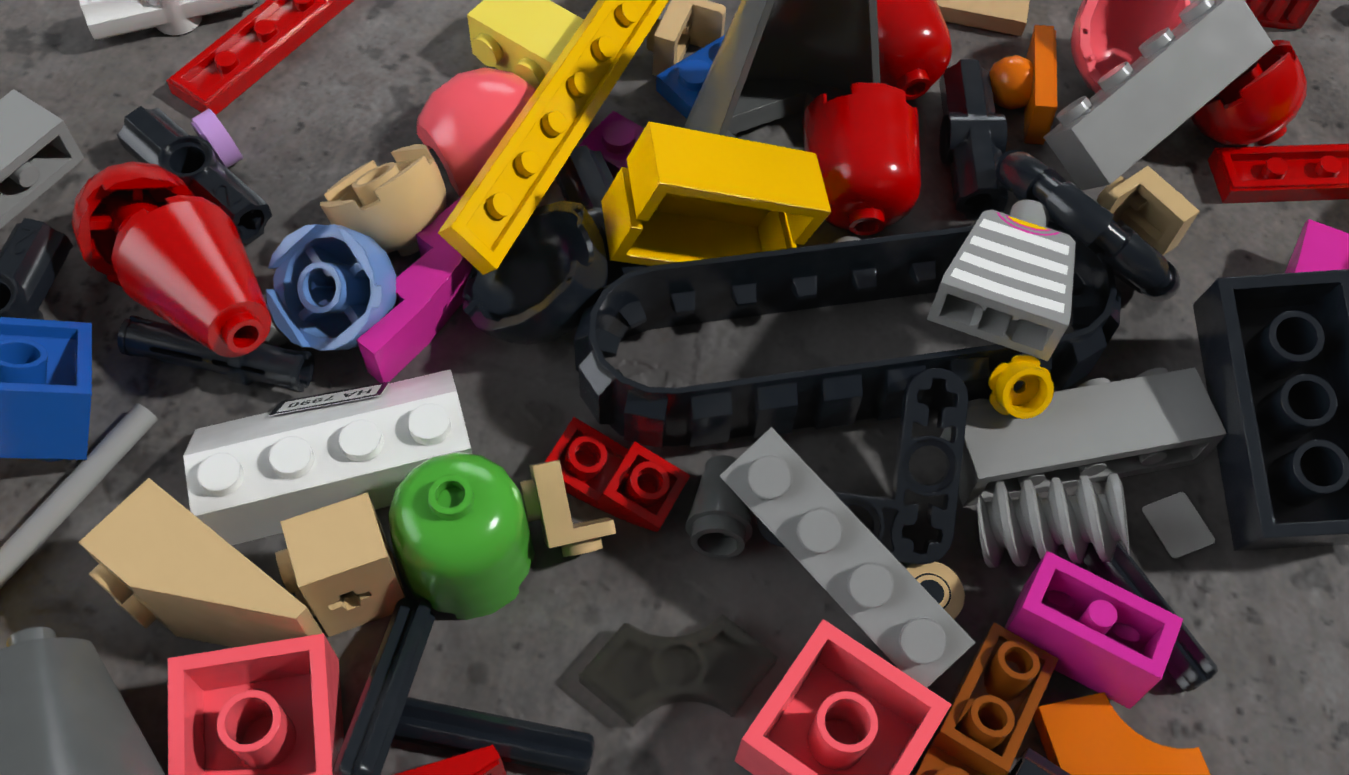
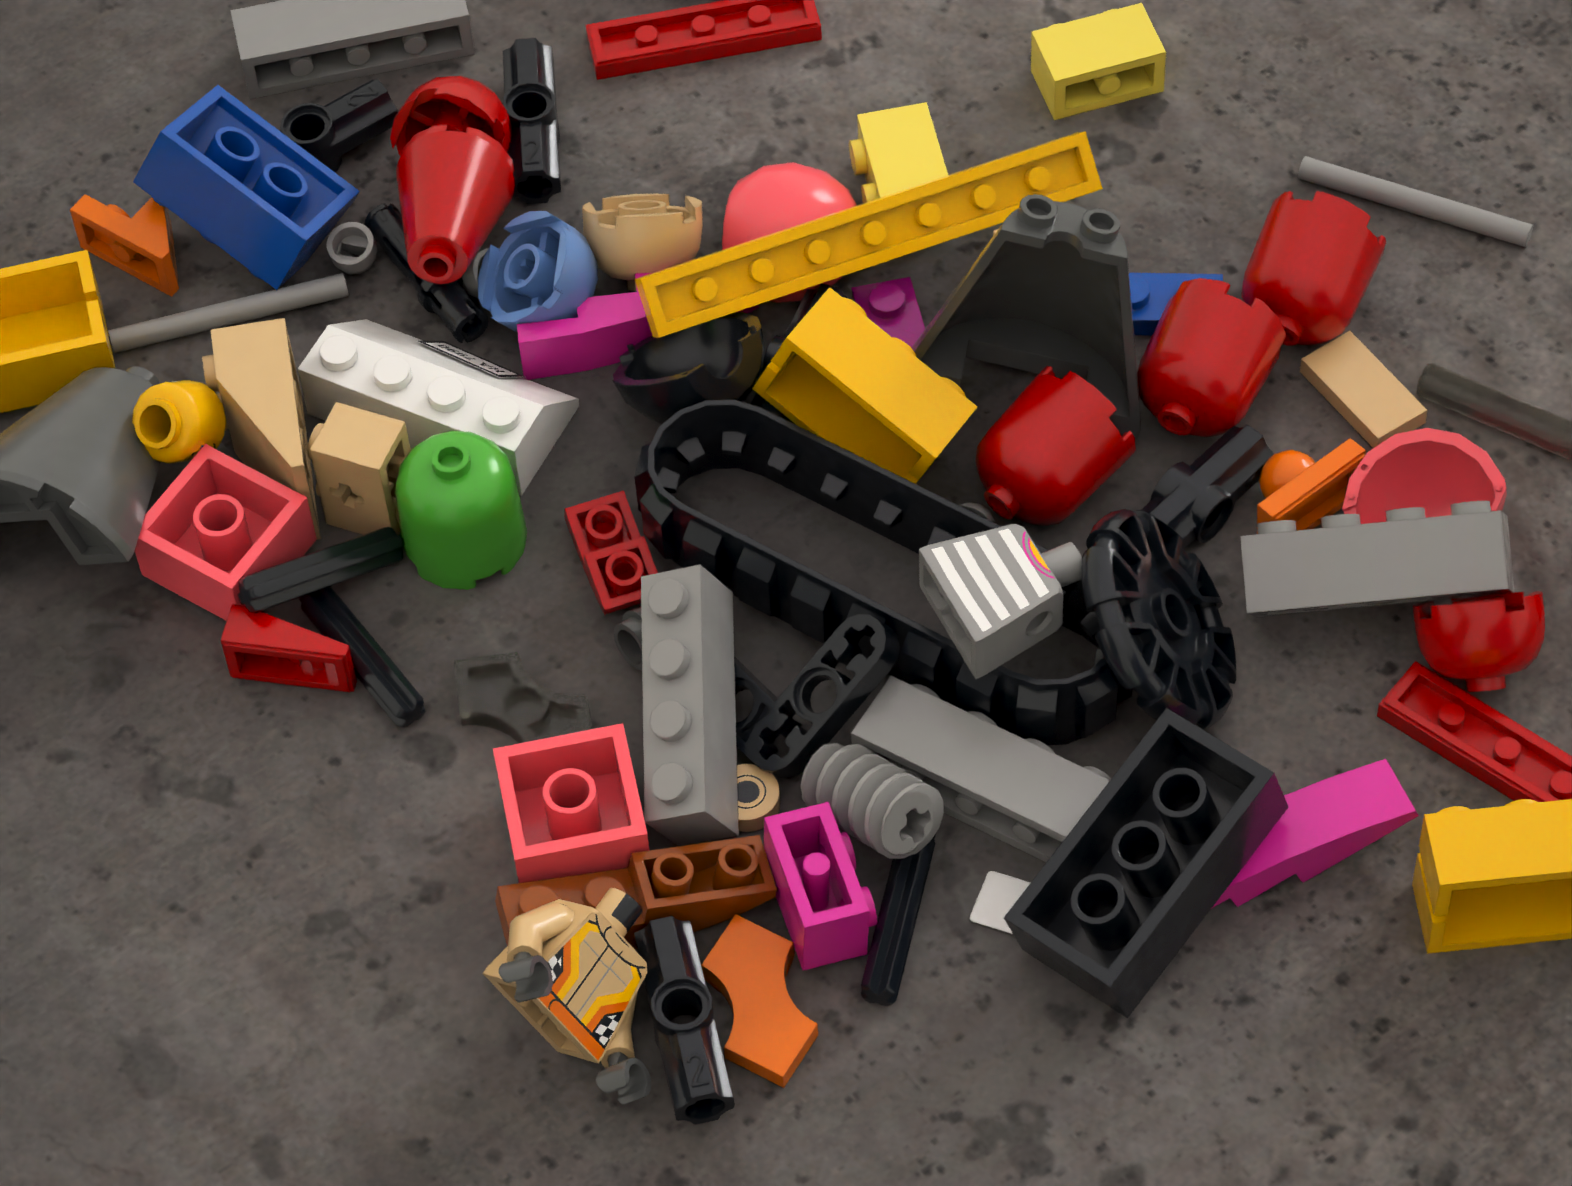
camera: 50 degrees right, 5 degrees down
(117, 656) = (178, 420): none -> yellow head
(125, 366) = (356, 240): none -> light grey hinge
(211, 129) = (574, 100): lavender tile -> none
(547, 501) = (538, 538): tan bracket -> none
(1033, 395) = (927, 690): yellow plate -> none
(1150, 208) = (1267, 641): tan bracket -> none

